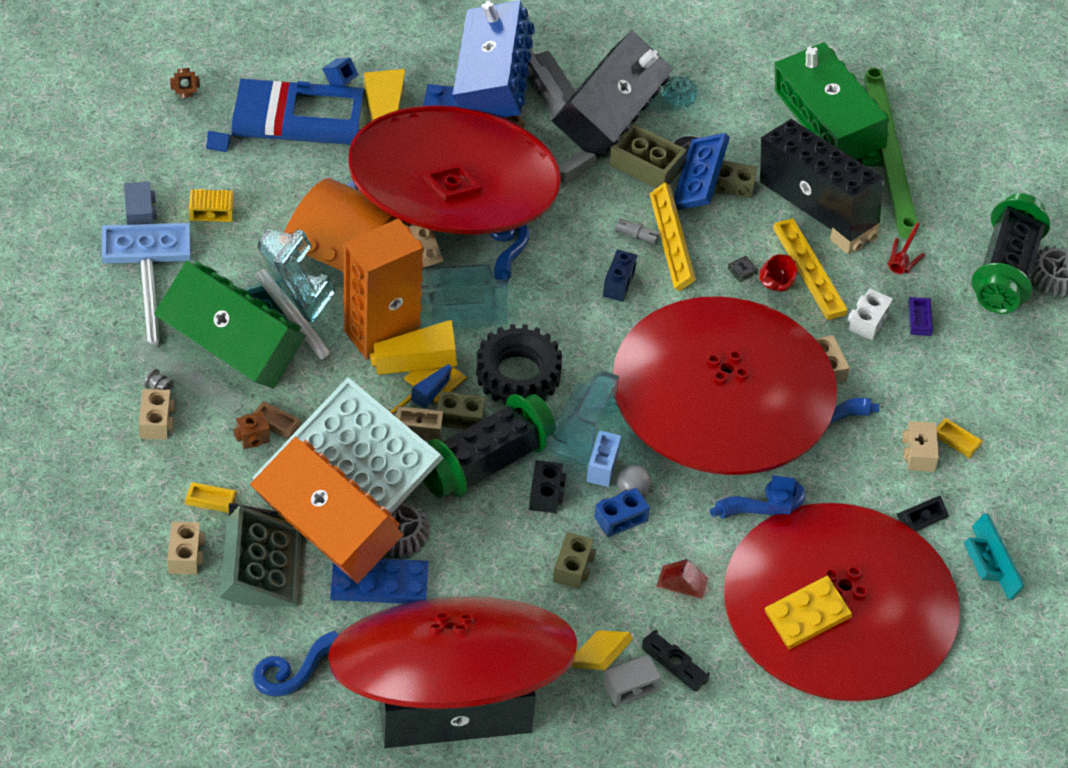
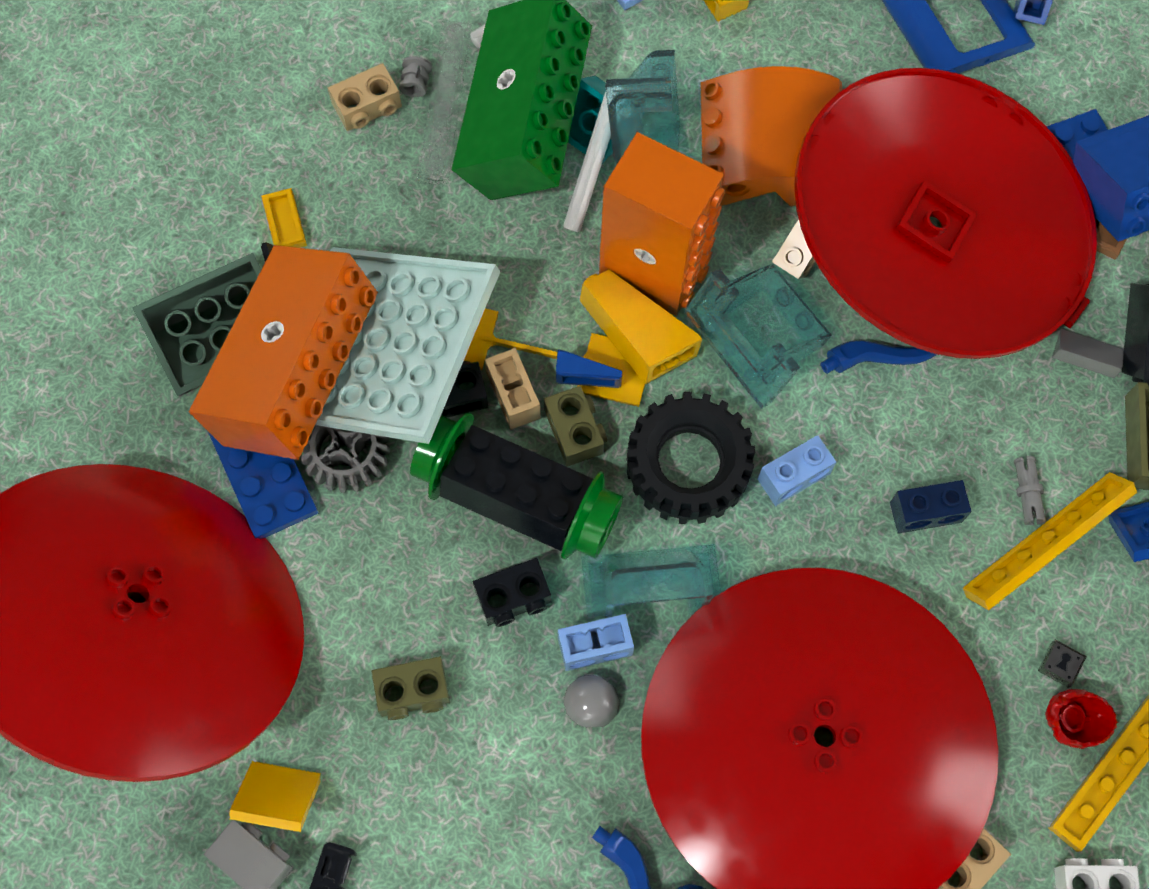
camera: 65 degrees right, 20 degrees up
(185, 553) = (184, 224): tan brick -> none
(252, 430) = (397, 209): dark orange brick -> none
(278, 420) = (440, 227): medium nougat tile -> none
(317, 651) = (102, 454): blue plant -> none
(383, 91) = (1038, 70): yellow slope -> none
(559, 321) = (796, 470): none -> light blue brick
(621, 512) = (520, 715): blue brick -> none
(683, 578) = (461, 847): clear red slope -> none

